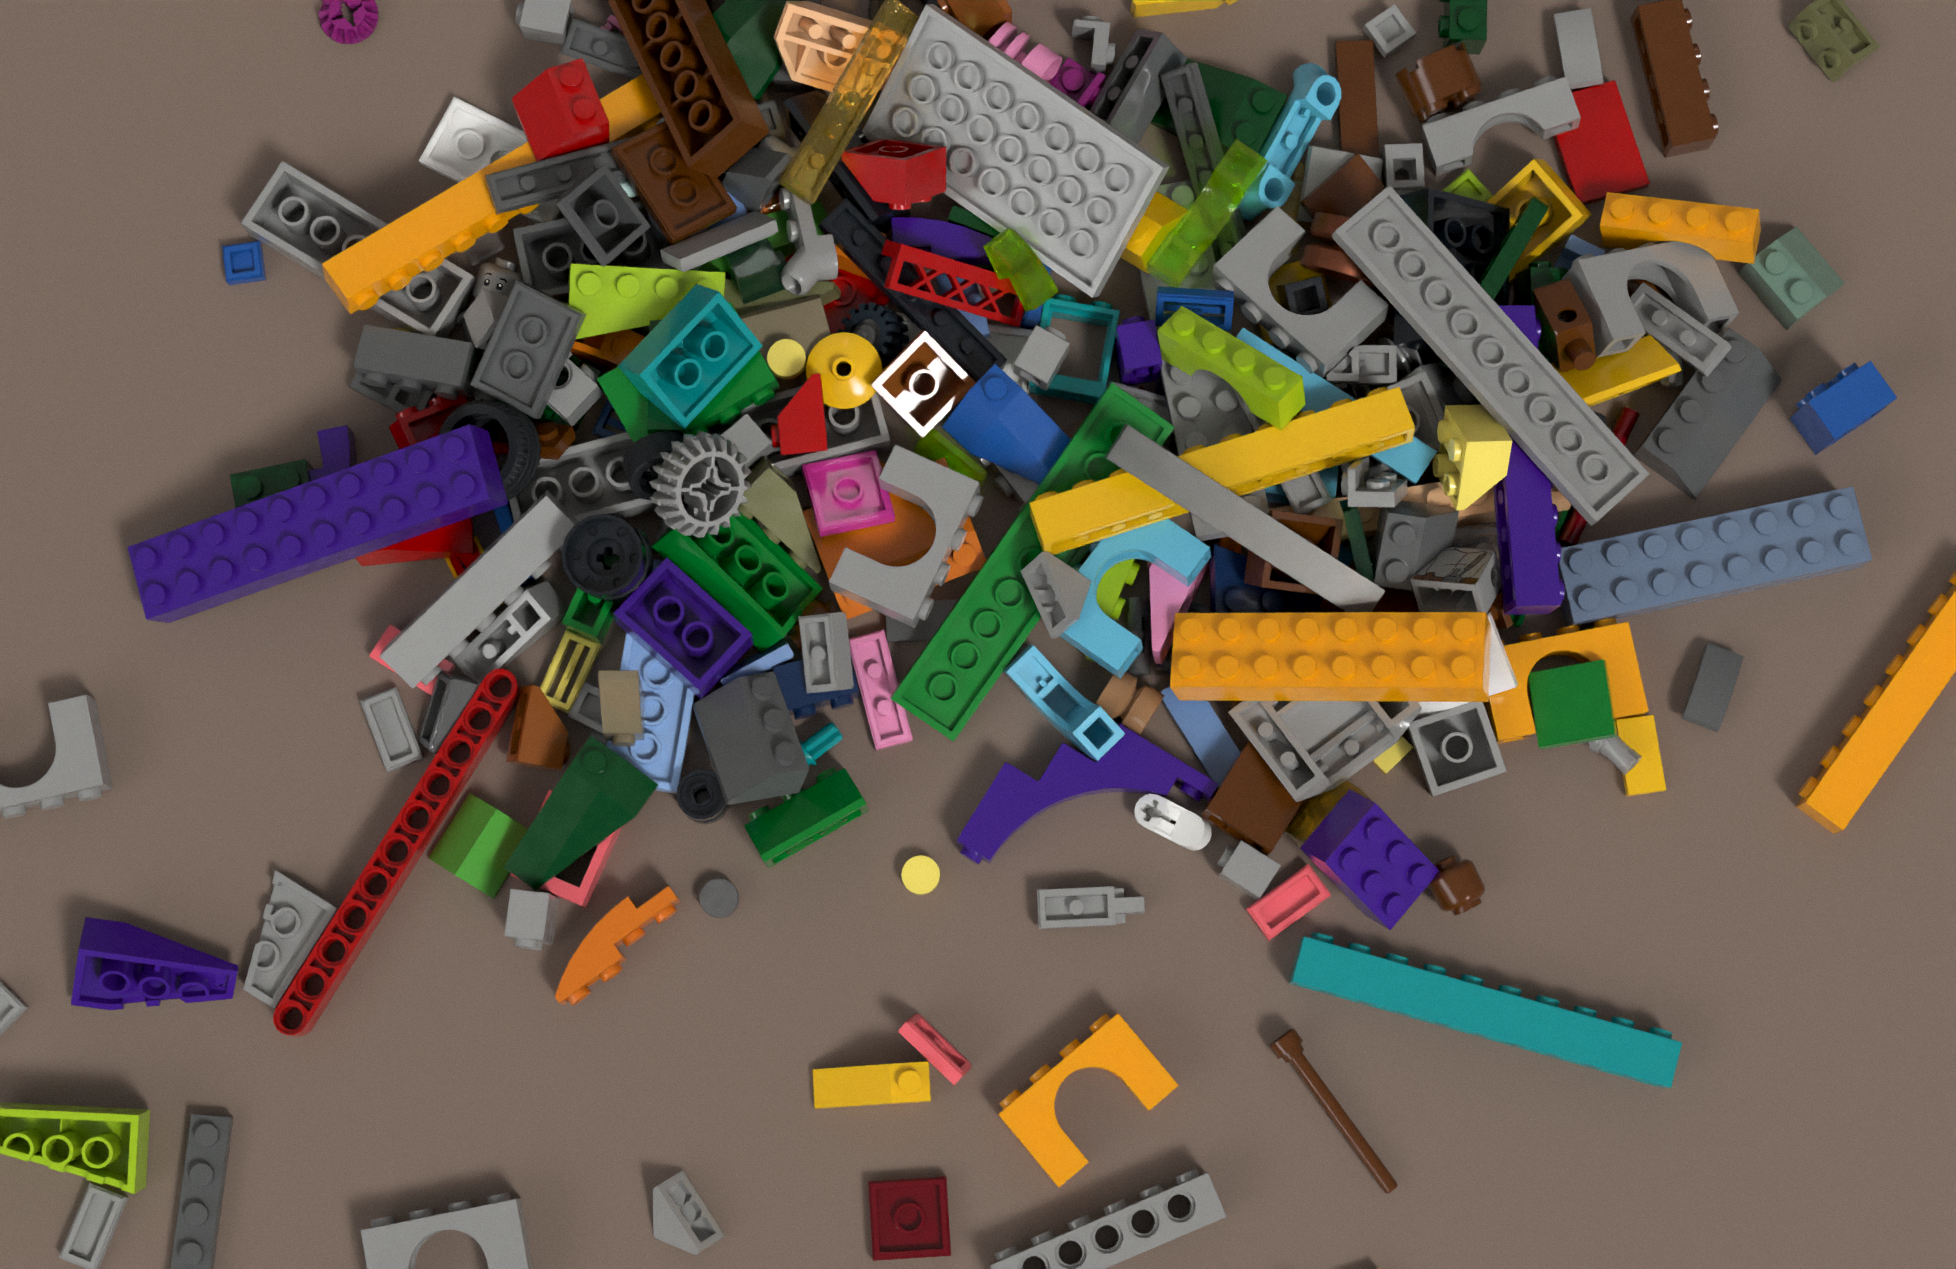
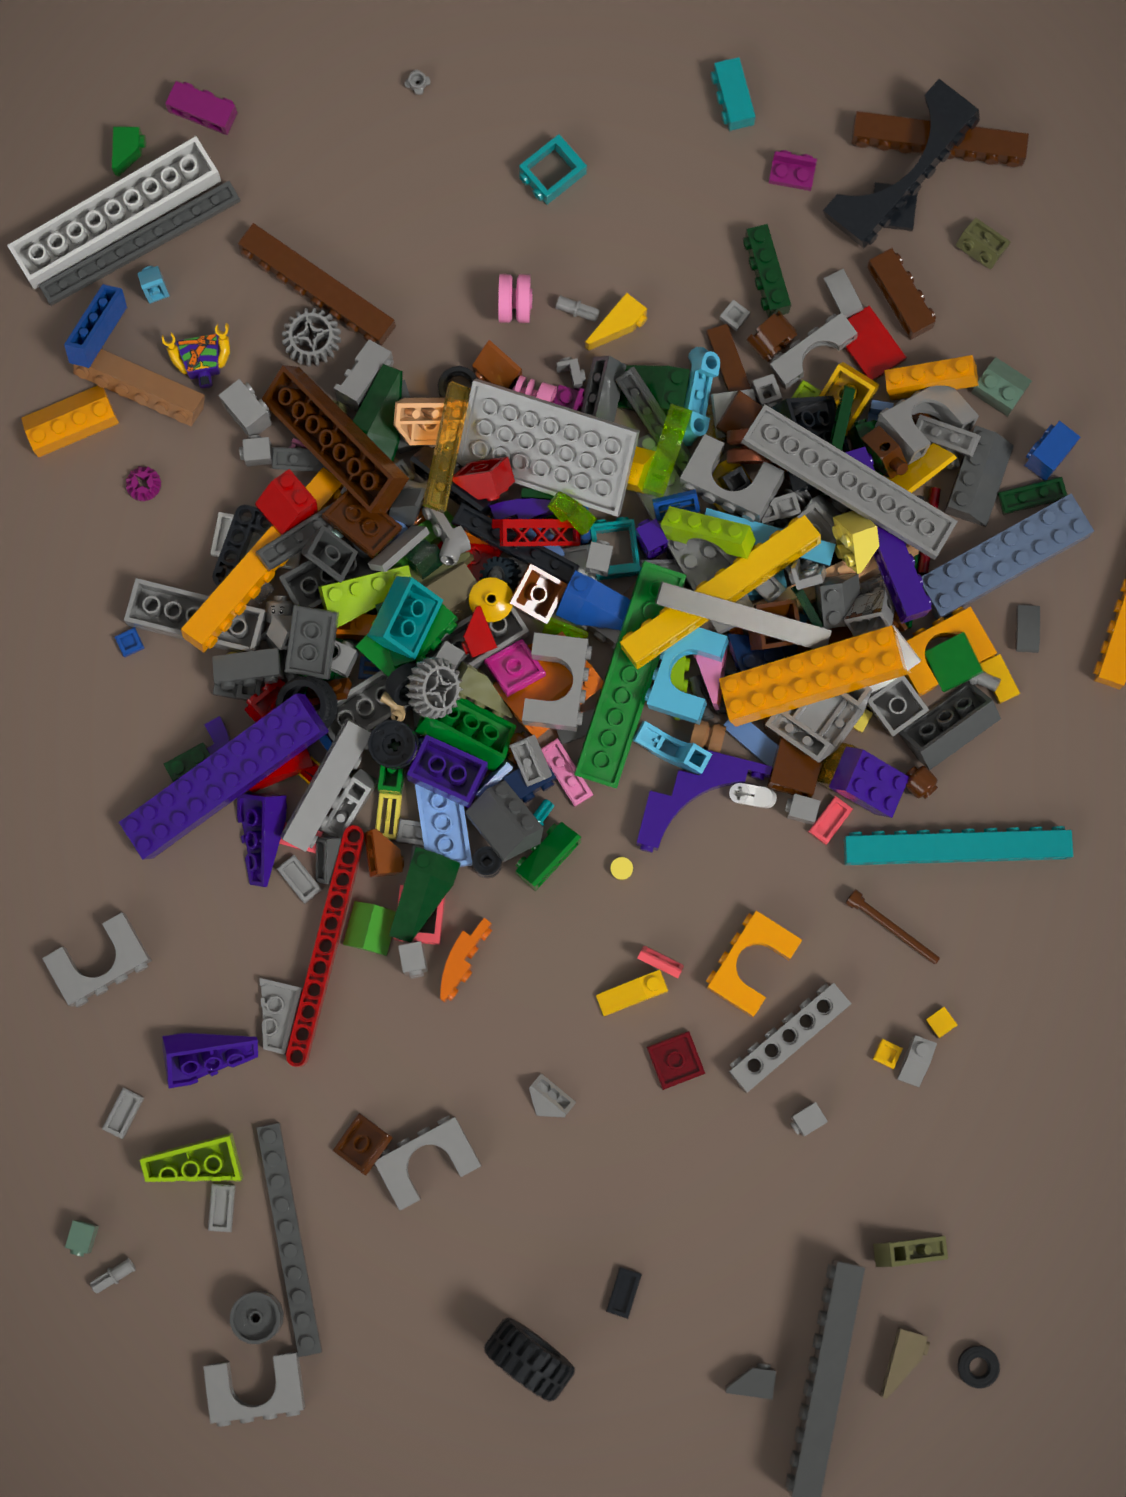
camera: 15 degrees left, 0 degrees up
(353, 1195) = (362, 1144): none -> reddish brown tile
(362, 620) = (262, 823): none -> dark purple wedge
(453, 158) = (238, 548): none -> black beam
(622, 706) = (428, 825): dark tan slope -> none
(633, 506) = (397, 712): none -> tan arm
(719, 898) = (513, 916): flat silver tile -> none
(786, 359) = (457, 603): light yellow tile -> none
(1056, 591) = (650, 687): light grey slope -> none
(1085, 907) = (719, 858): light grey hinge -> none
(1534, 806) = (950, 725): none -> dark grey slope
(1786, 471) = (1032, 495): none -> dark green tile

